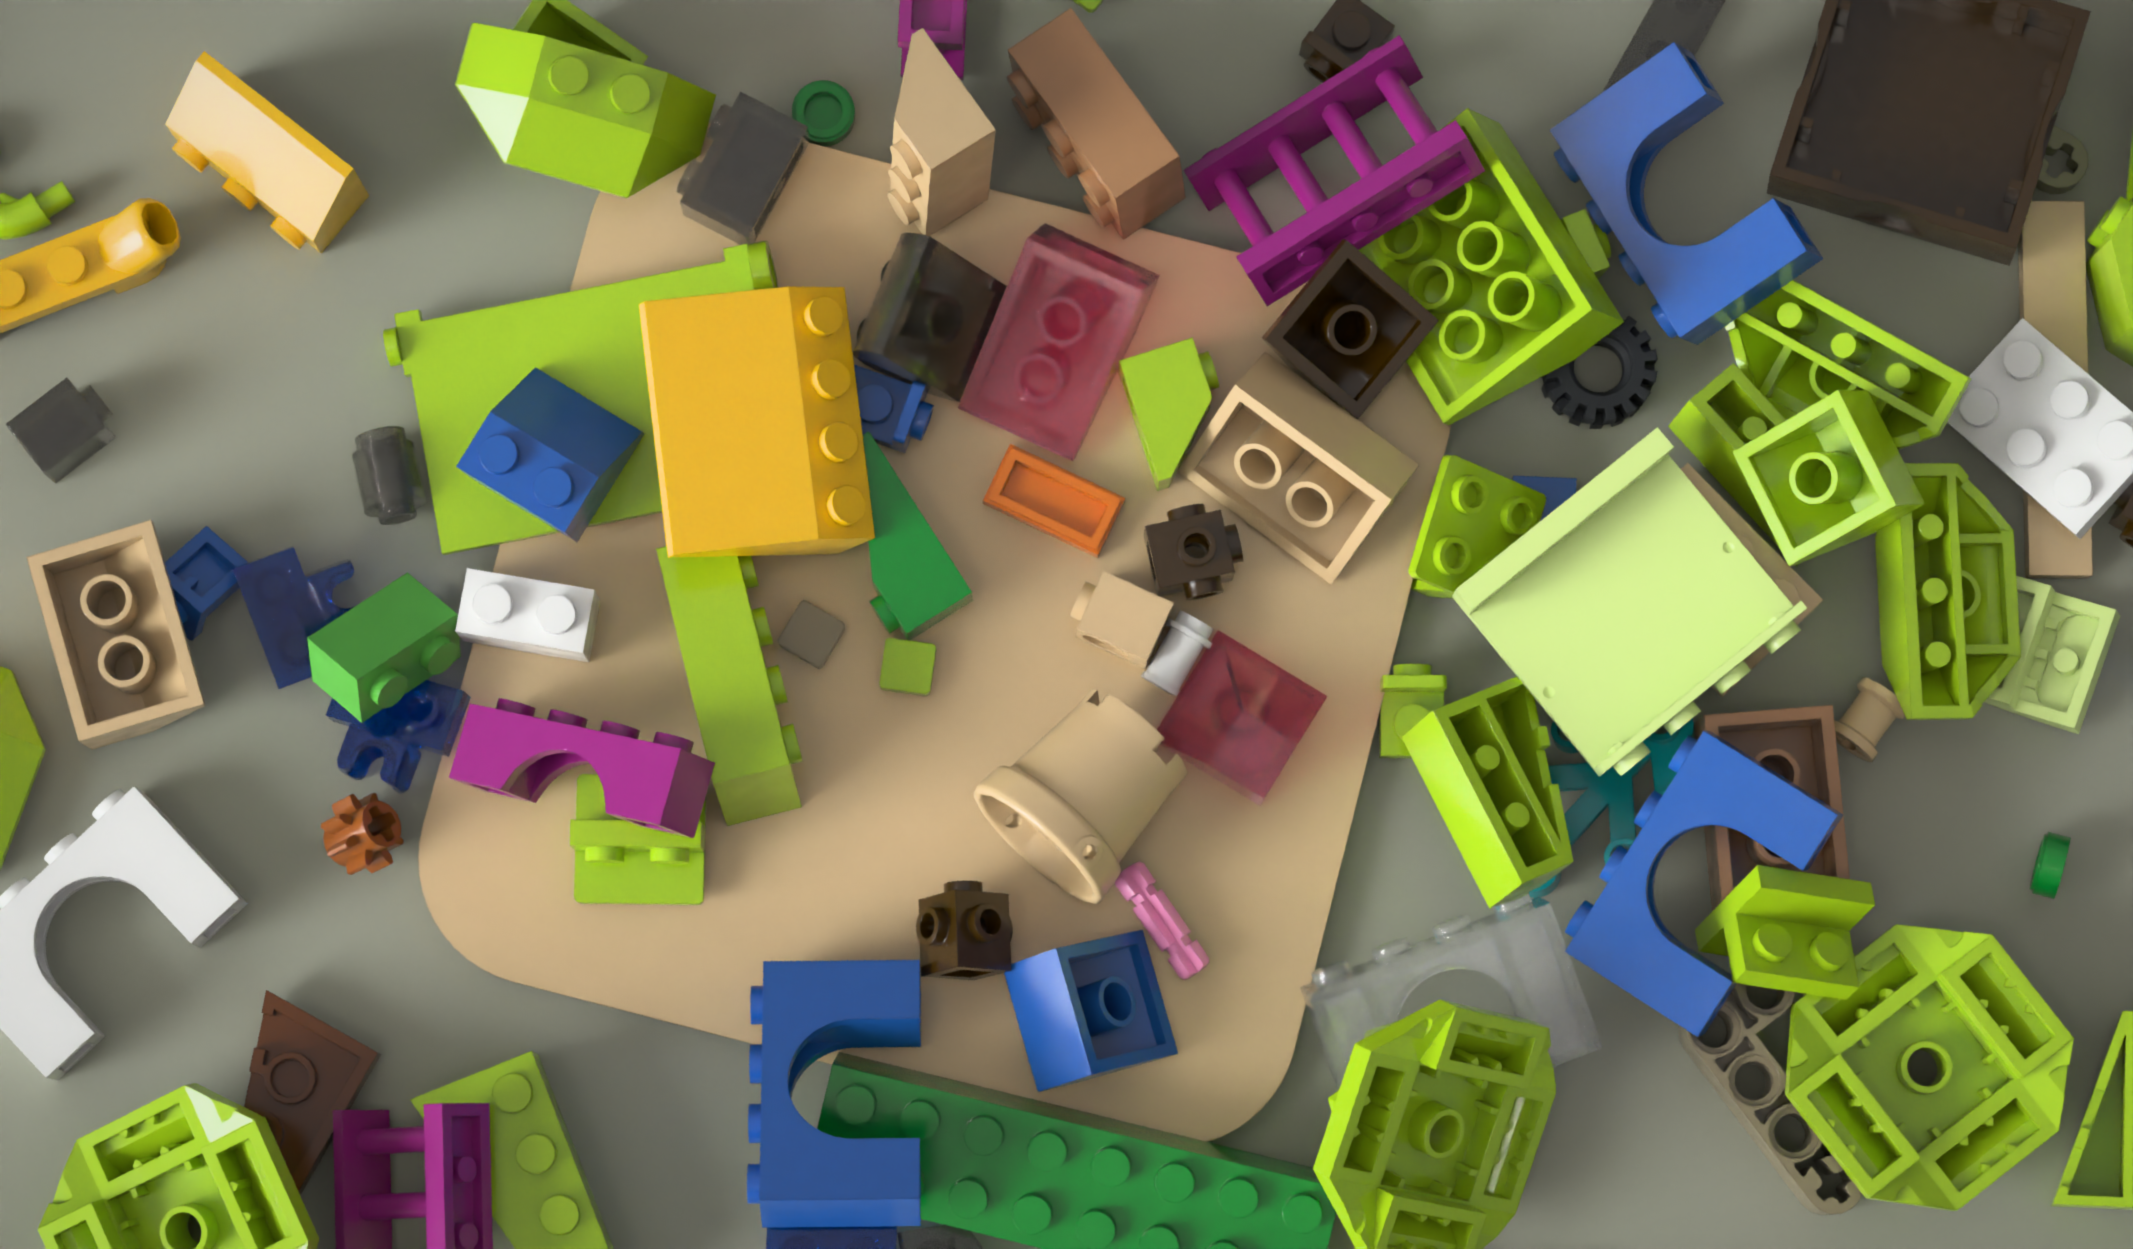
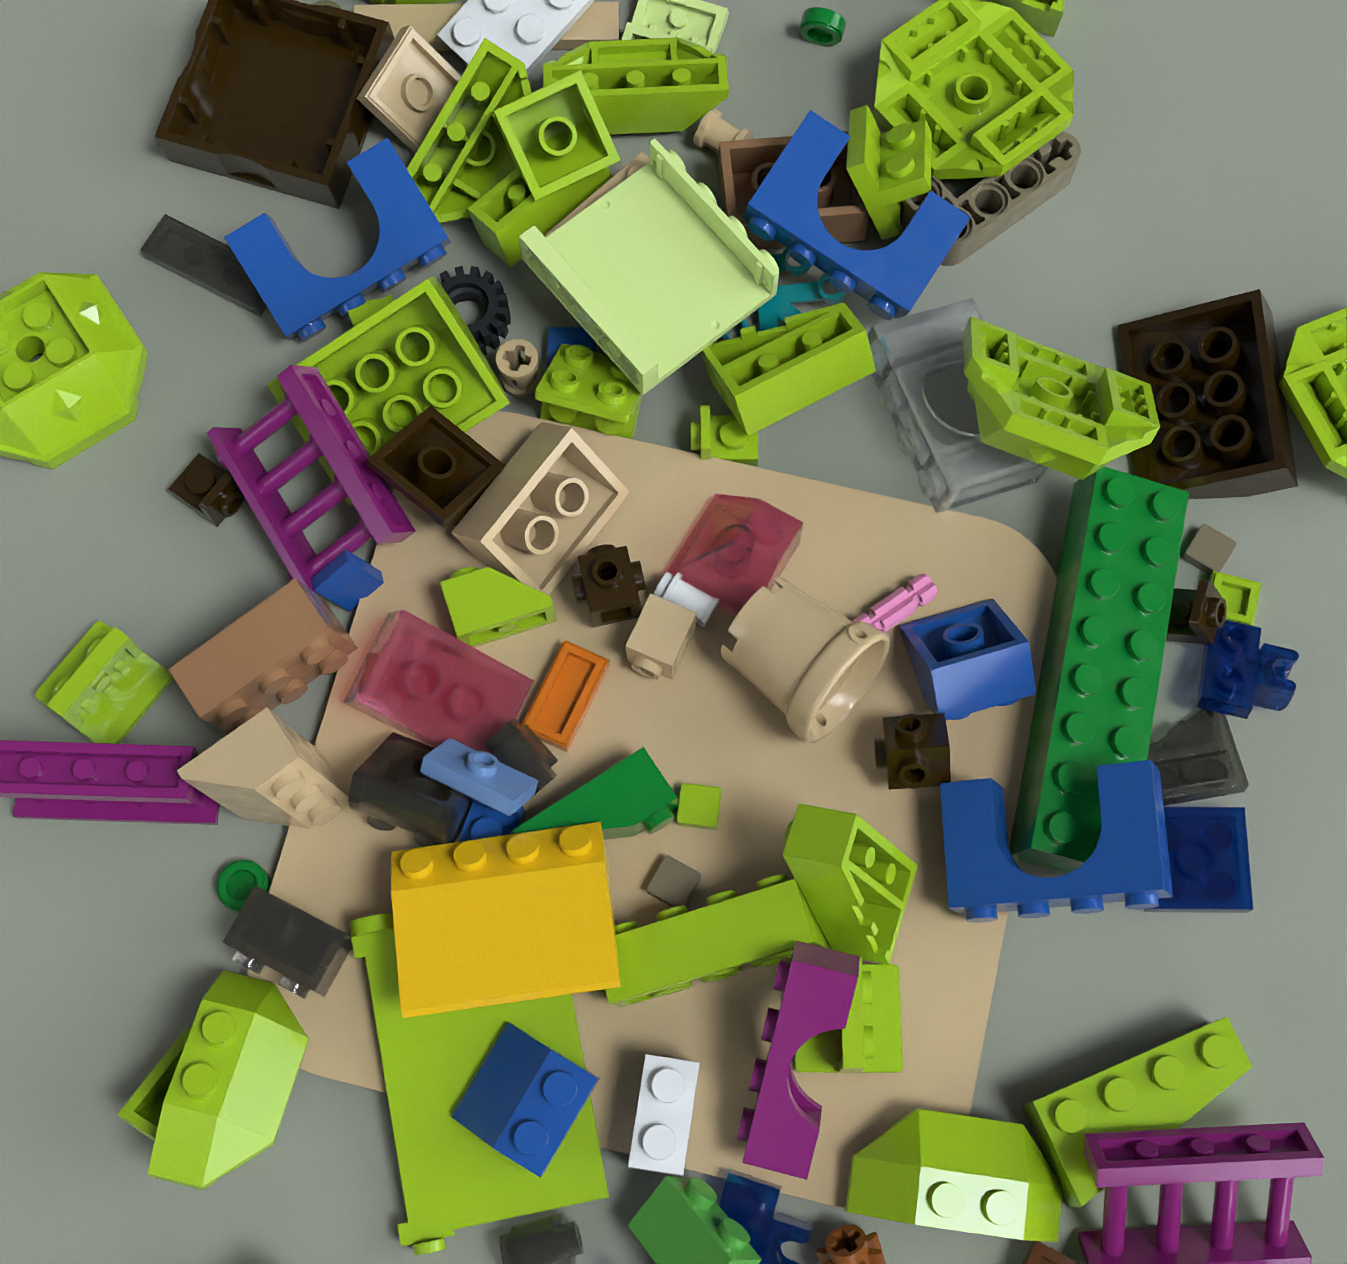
camera: 85 degrees left, 10 degrees down
(447, 963) = (957, 1177): none -> lime wedge
(793, 838) = (849, 879): none -> lime wedge
(935, 390) = (479, 776): none -> medium blue plate
(967, 444) = (523, 751): none -> clear smoke brick
(1209, 223) = (347, 580): none -> blue tile
(1530, 432) = (515, 367): none -> tan bush
(1928, 287) = (409, 87): none -> tan tile

